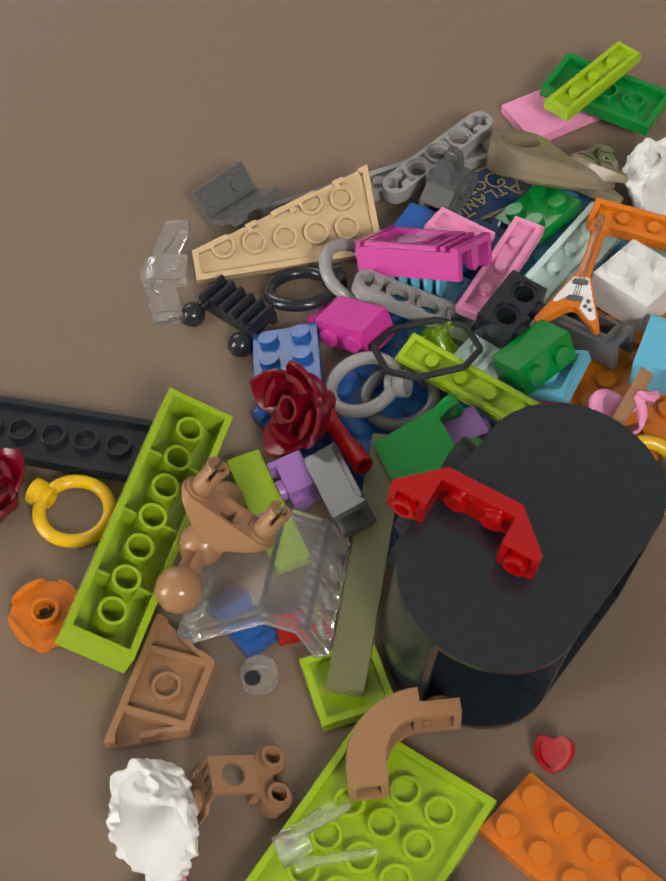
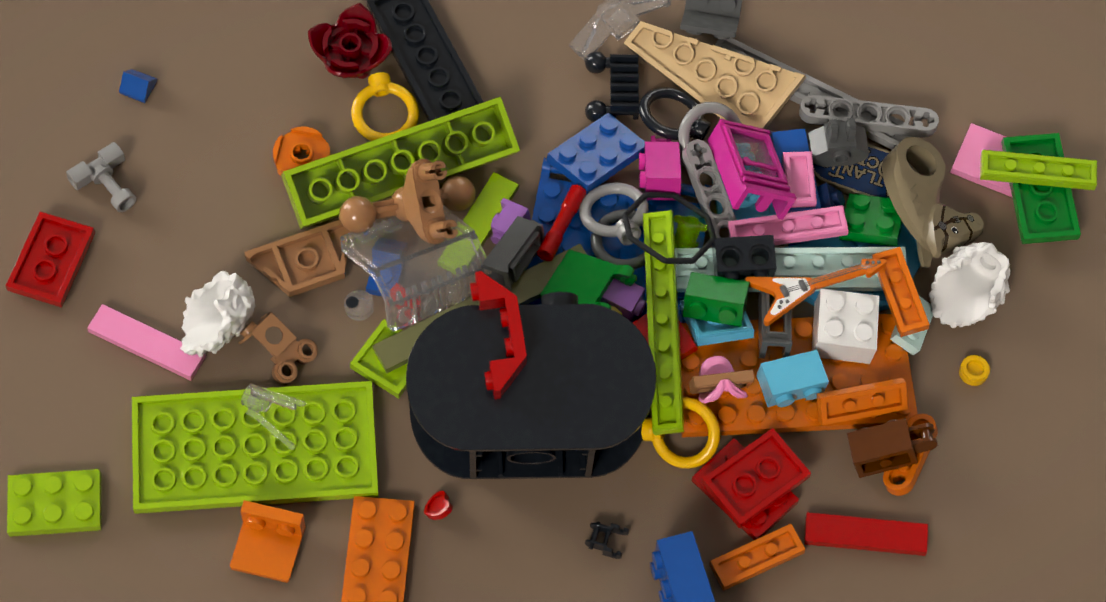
camera: 45 degrees right, 10 degrees up
(297, 406) = (554, 186): dark red brick -> none
(383, 728) = (362, 396): medium nougat arch -> none

